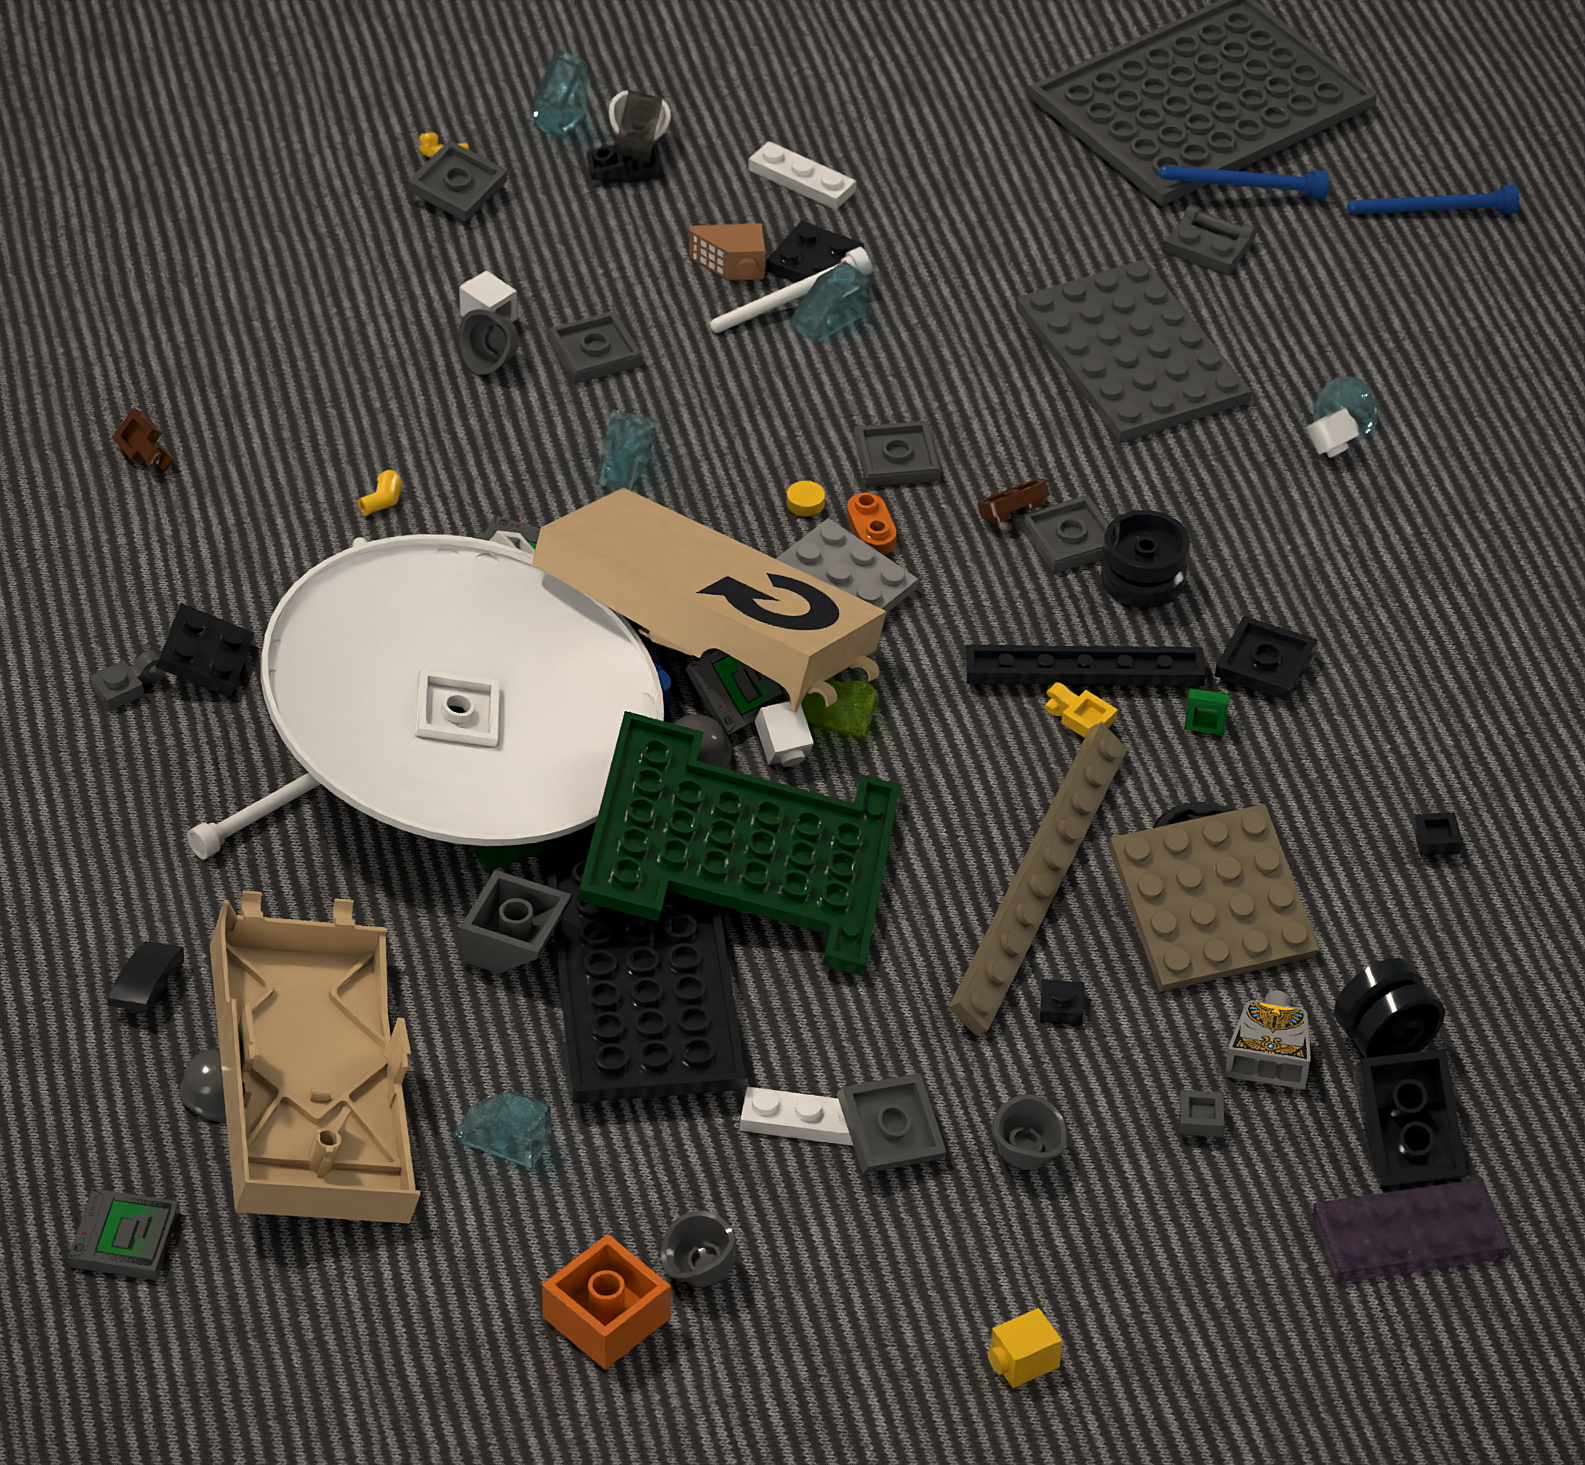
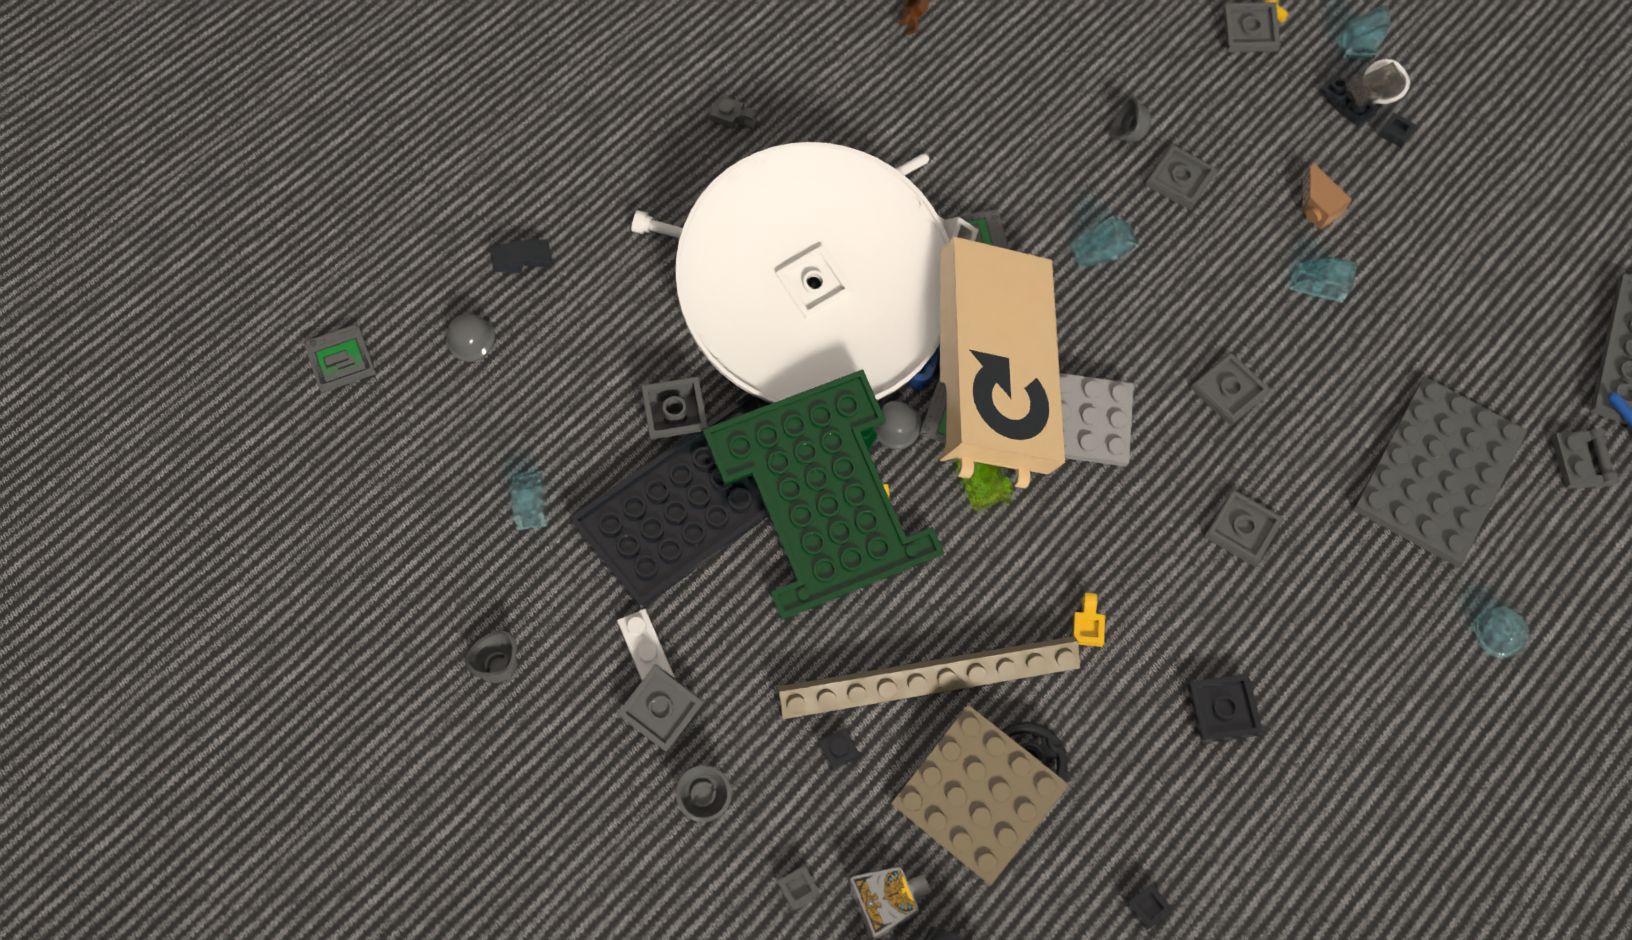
camera: 55 degrees right, 20 degrees up
(205, 650) = (776, 127): black plate -> none
(311, 1067) = (495, 374): tan piece -> none
(386, 493) = (972, 146): yellow arm -> none
(488, 294) = (1165, 102): white brick -> none
(606, 1301) = (423, 629): orange brick -> none
(701, 147) = (1397, 130): none -> black plate
(783, 734) = (929, 467): white brick -> none
(802, 175) = (1426, 197): white plate -> none
(805, 498) = (1149, 361): yellow tile -> none
(808, 252) = (1362, 243): black plate -> none
(857, 258) = (1364, 269): white piece -> none
(871, 522) = (1159, 408): orange plate -> none
(1025, 496) = (1246, 479): reddish brown plate -> none
(1025, 1348) = (536, 887): yellow brick -> none
(1085, 665) = (1132, 603): black plate -> none
(1145, 558) = (1247, 585): black wheel -> none
(1207, 711) = (1148, 698): green brick -> none
(1333, 432) = (1464, 636): white plate -> none

